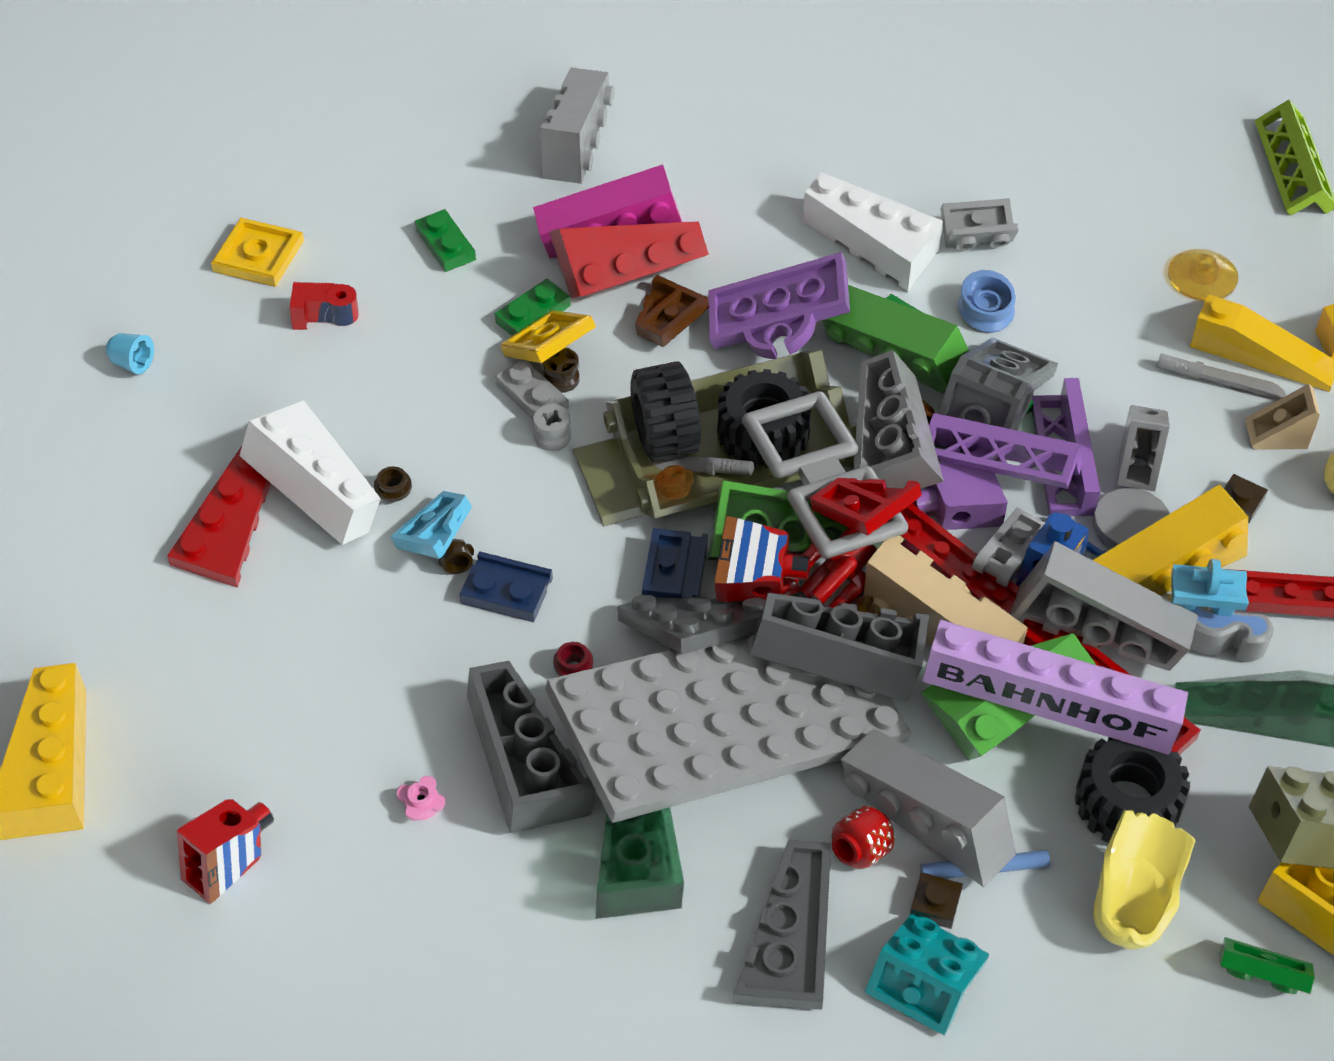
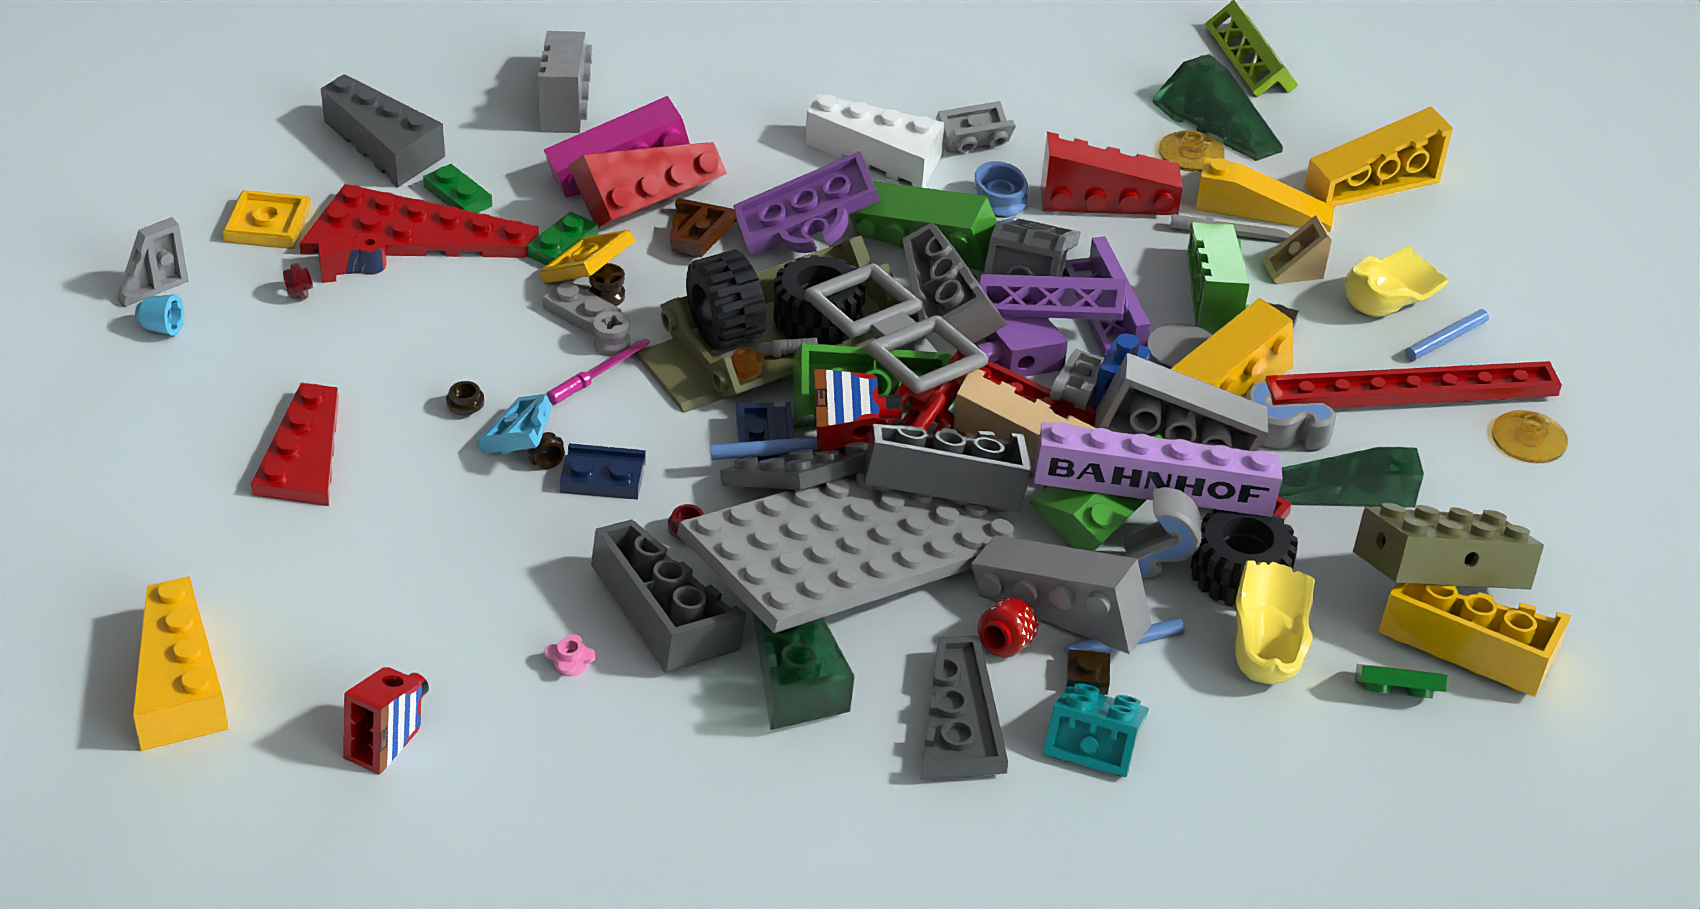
camera: 15 degrees left, 10 degrees down
(133, 296) = (154, 263): none -> light grey wing
(266, 329) = (297, 281): none -> dark red plate
(311, 470) = (383, 391): white wedge -> none
(390, 164) = (383, 128): none -> dark grey wedge
(395, 277) = (418, 226): none -> red wing
(512, 476) = (583, 379): none -> dark pink piece
(662, 587) = (761, 448): none -> medium blue bar
(863, 503) = (942, 341): red wing -> none
(1053, 759) = (1169, 539): none -> light grey animal
(1100, 307) = (1106, 181): none -> red wedge
(1143, 439) = (1180, 282): light grey torso -> none
(1191, 438) = (1216, 275): none -> bright green wedge
(1209, 587) = (1273, 379): medium azure hips -> none
(1238, 220) = (1215, 102): none -> clear green wedge

